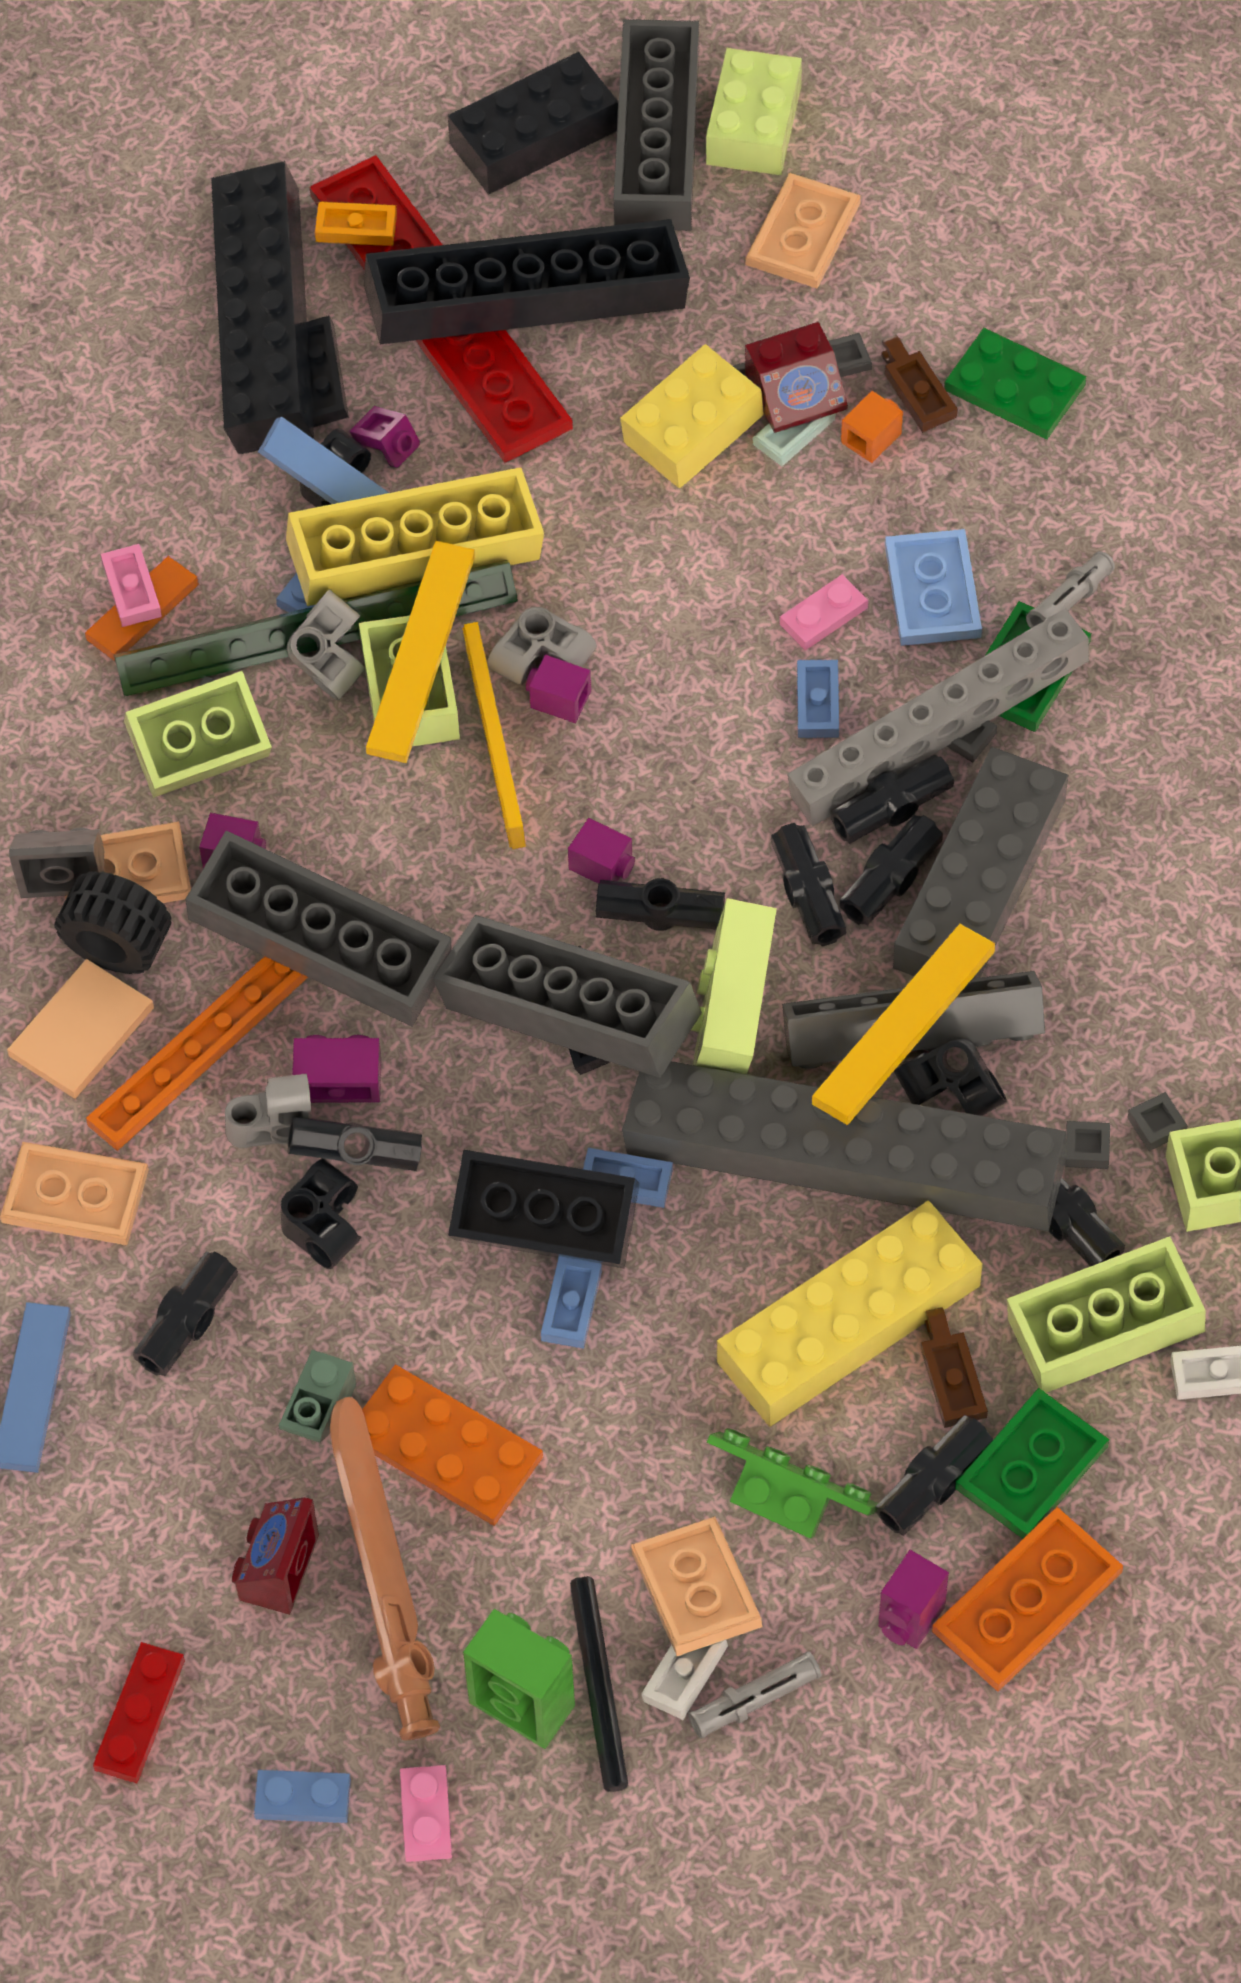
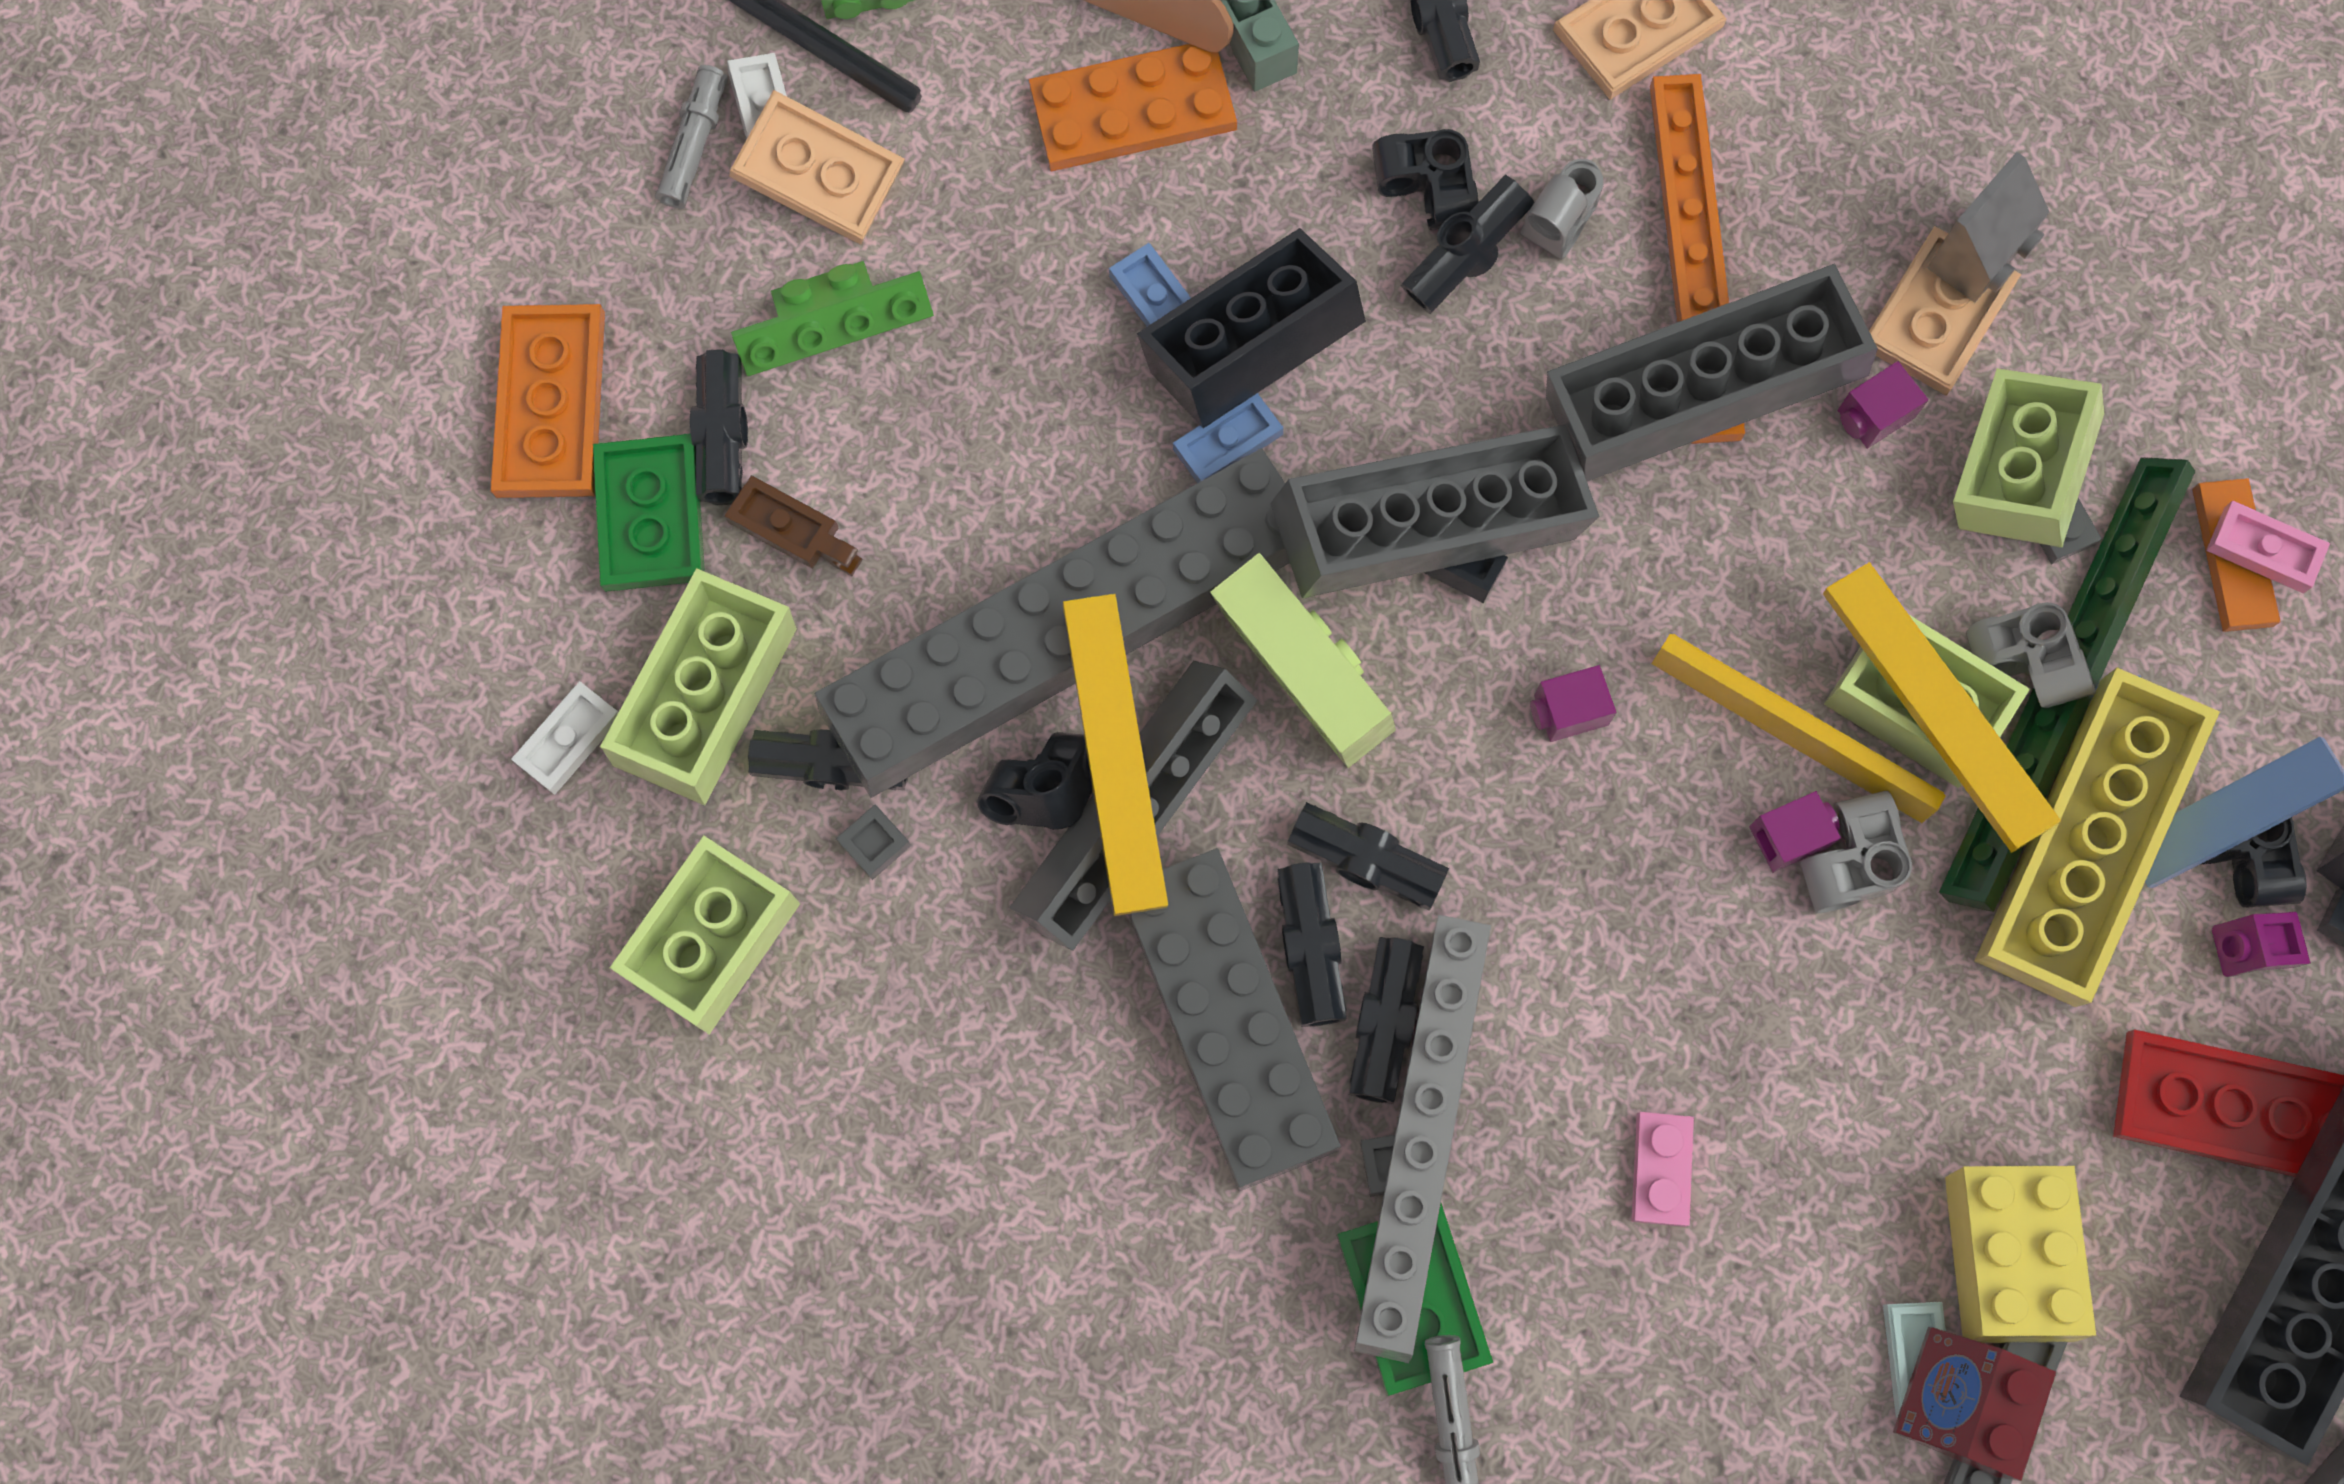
camera: 135 degrees right, 15 degrees up
(80, 1028) = (1801, 150): light nougat tile -> none
(113, 922) = (1877, 219): black tyre -> none
(339, 1068) = (1560, 300): magenta brick -> none
(636, 902) = (1493, 687): black piece -> none
(818, 698) = (1564, 1061): medium blue plate -> none
(848, 1313) = (918, 489): light yellow brick -> none
(872, 426) = (1846, 1435): orange brick -> none
(912, 1600) = (624, 293): magenta brick -> none
(933, 587) = (1592, 1300): light blue plate -> none
(1155, 1120) = (833, 924): dark grey plate -> none

